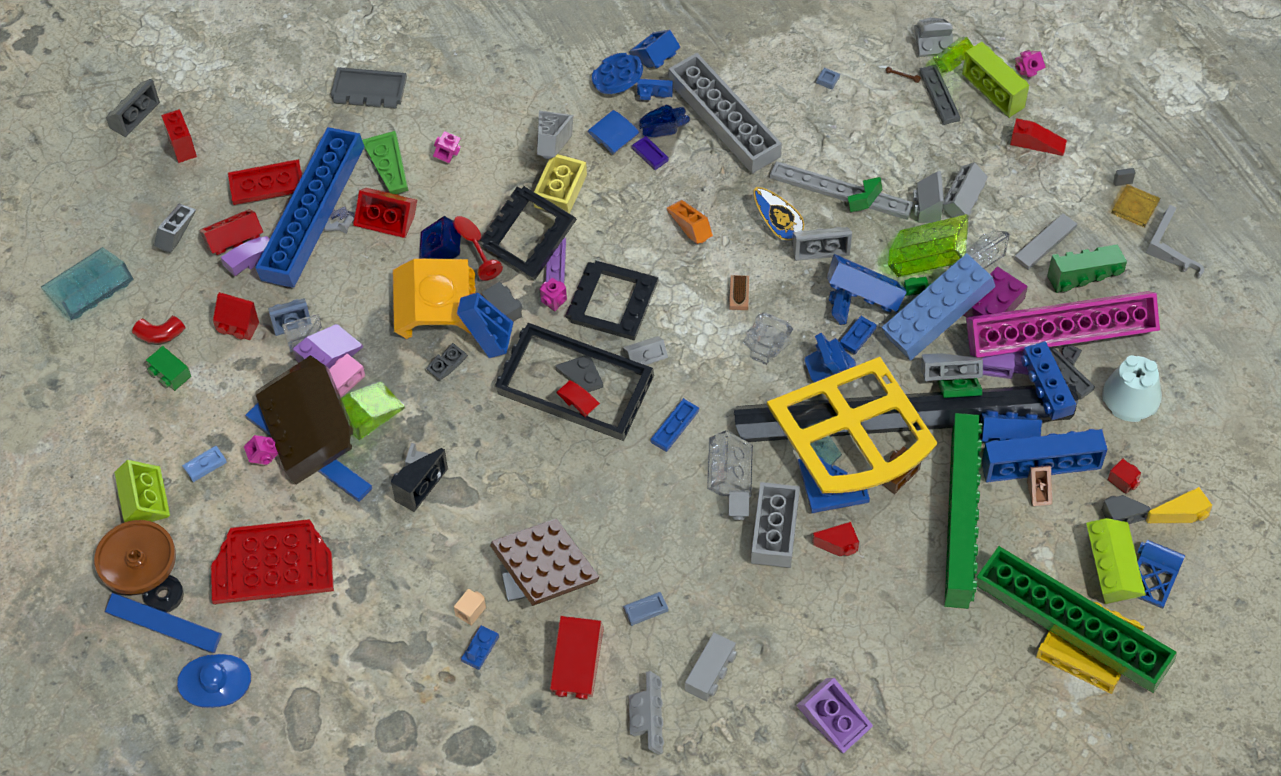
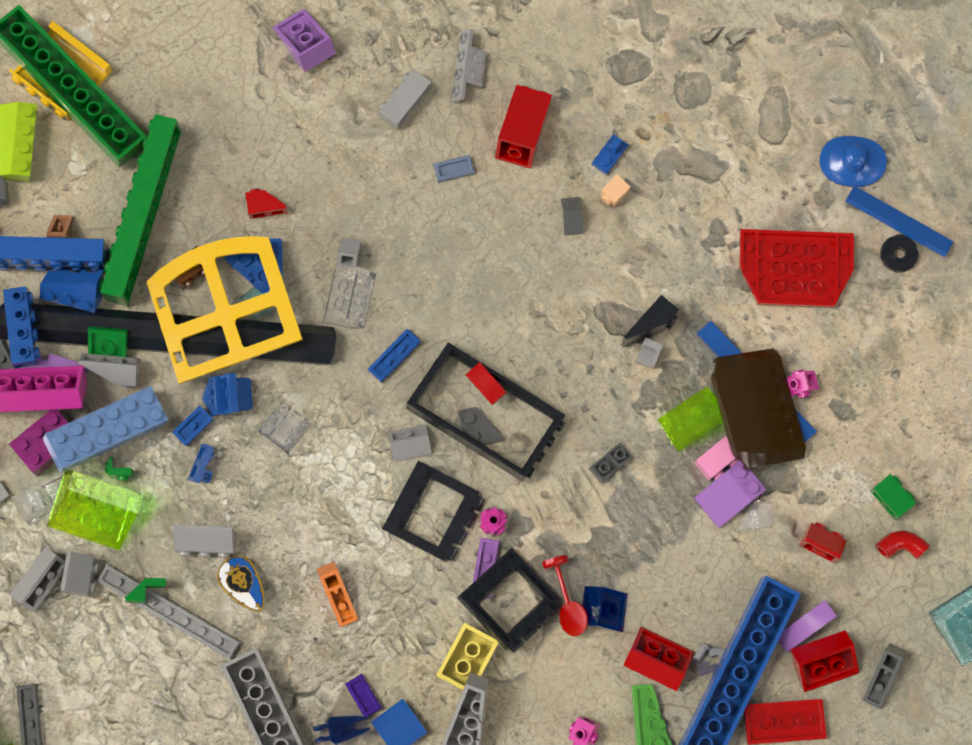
camera: 175 degrees left, 20 degrees up
(135, 557) = (925, 286): dark orange dish -> none
(141, 492) = (919, 358): lime slope -> none
(204, 463) = (858, 382): medium blue plate -> none
(287, 313) = (767, 539): sand blue slope -> none
(430, 293) = (616, 534): light orange panel -> none
(486, 324) = (566, 484): blue wedge -> none
(503, 300) = (547, 519): dark grey brick -> none
(544, 561) = (541, 219): plate -> none
(739, 292) = (301, 498): tile -> none
(775, 525) = (319, 224): light grey brick -> none
(865, 283) = (171, 476): slope -> none

